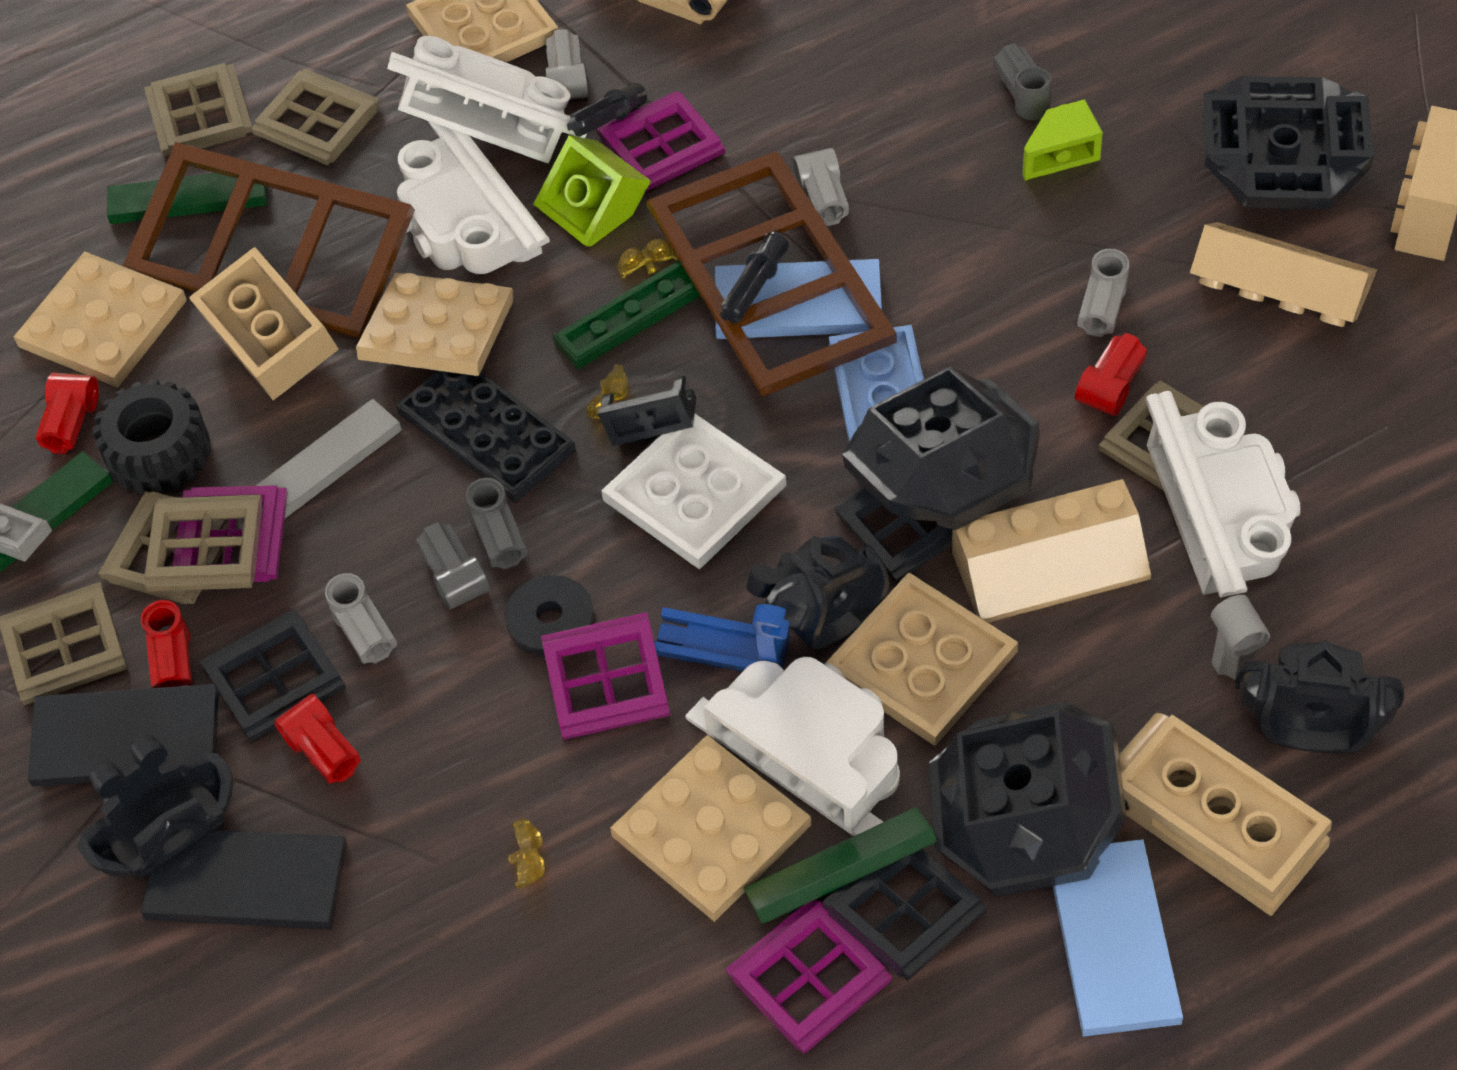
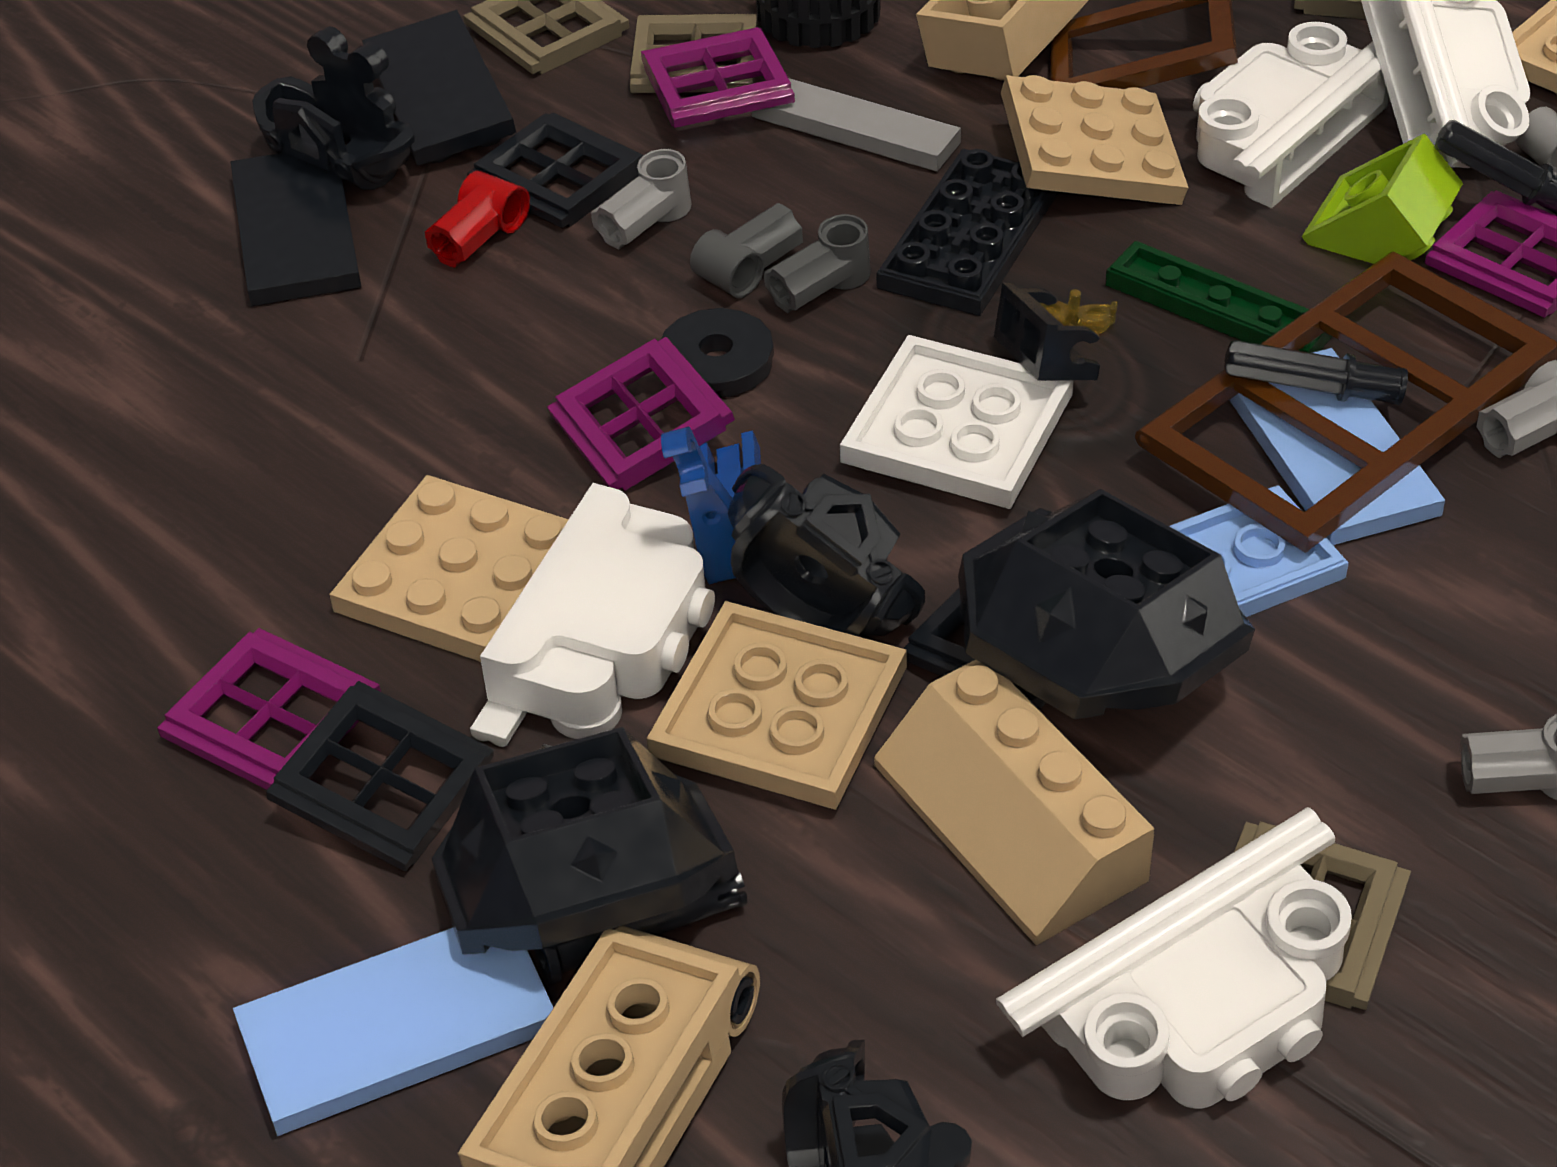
camera: 70 degrees right, 10 degrees down
(169, 648) = (569, 77): red piece -> none
(203, 576) = (727, 39): dark tan piece -> none
(530, 863) = (362, 425): clear yellow piece -> none
(633, 258) = (1303, 280): clear yellow piece -> none
(839, 865) = (422, 689): dark green tile -> none
(1109, 382) = (1360, 802): red piece -> none
(1238, 634) = (924, 1033): light grey piece -> none

